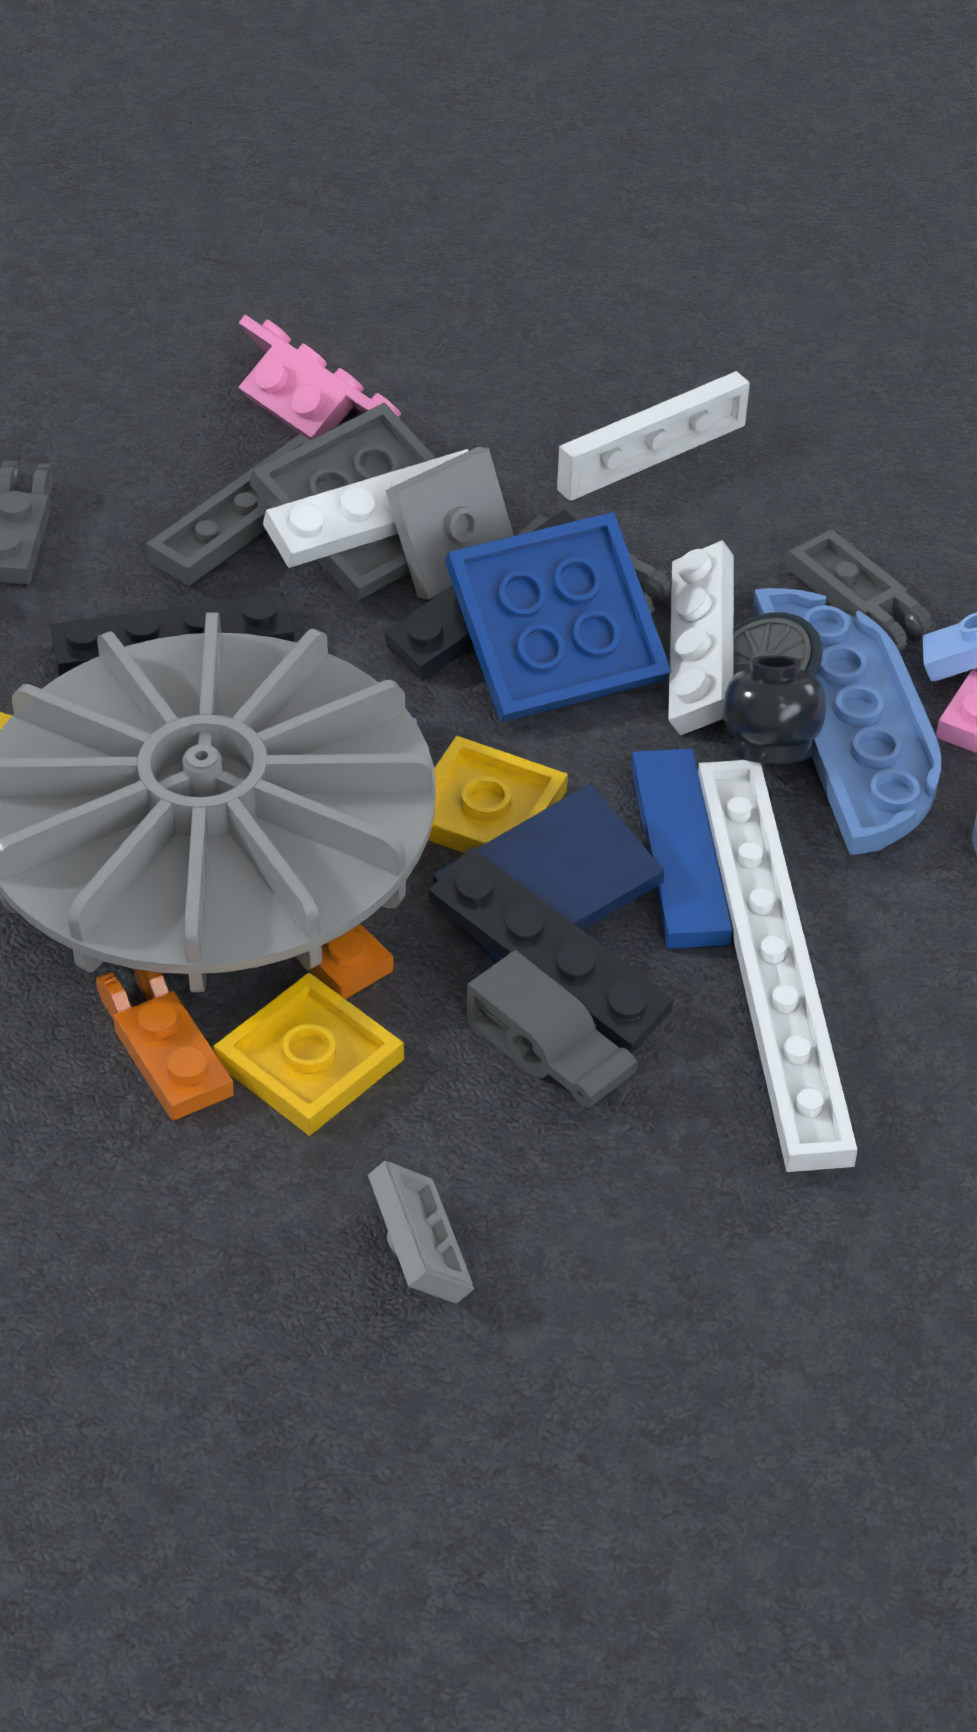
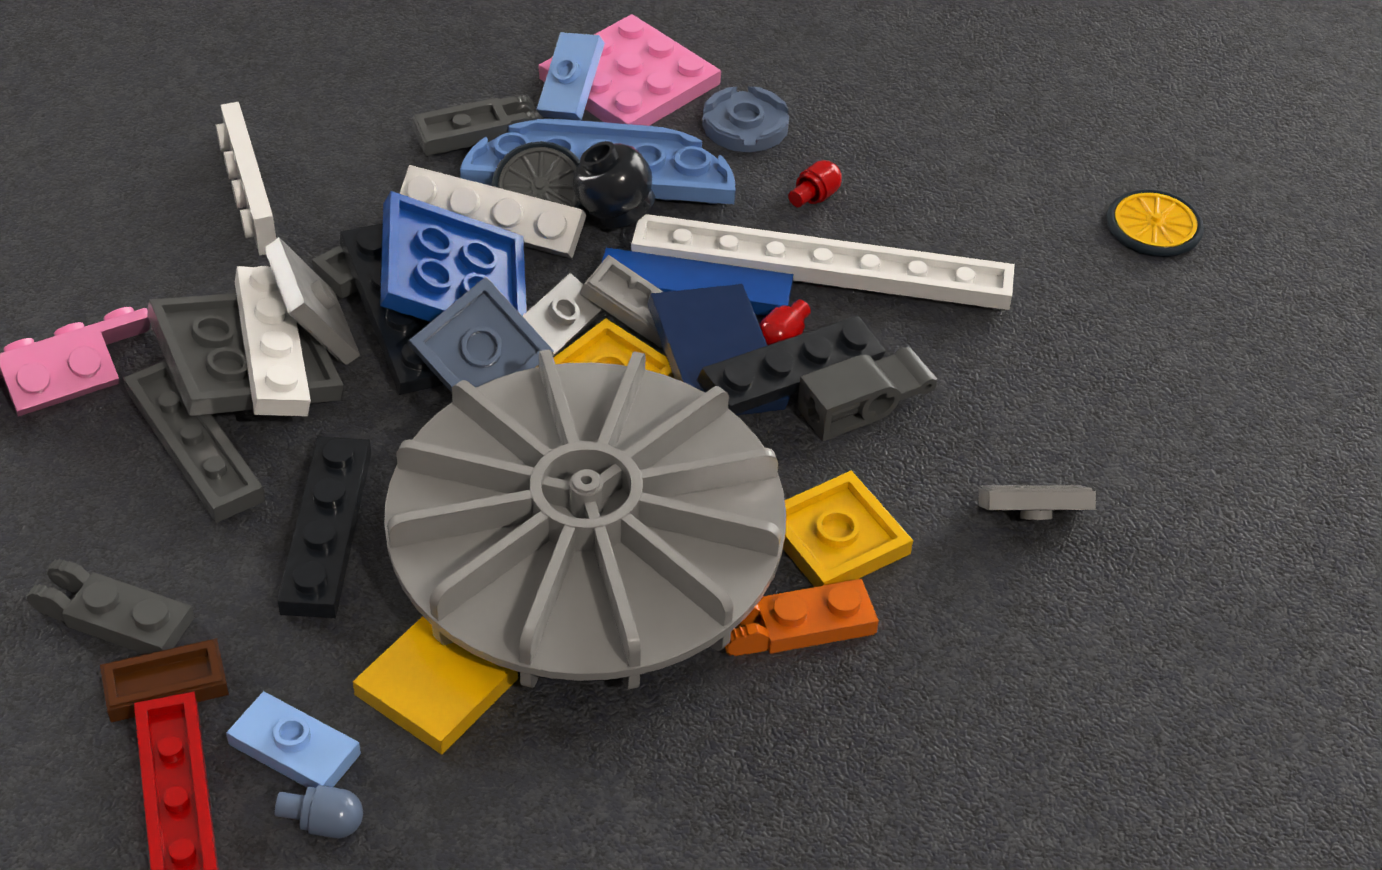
camera: 75 degrees left, 0 degrees up
(448, 664) = (478, 339): none -> sand blue tile
(544, 731) = (562, 314): none -> plate
(613, 766) = (623, 296): none -> light grey plate
(633, 937) = (785, 322): none -> red cylinder
(930, 925) = (816, 183): none -> red cylinder

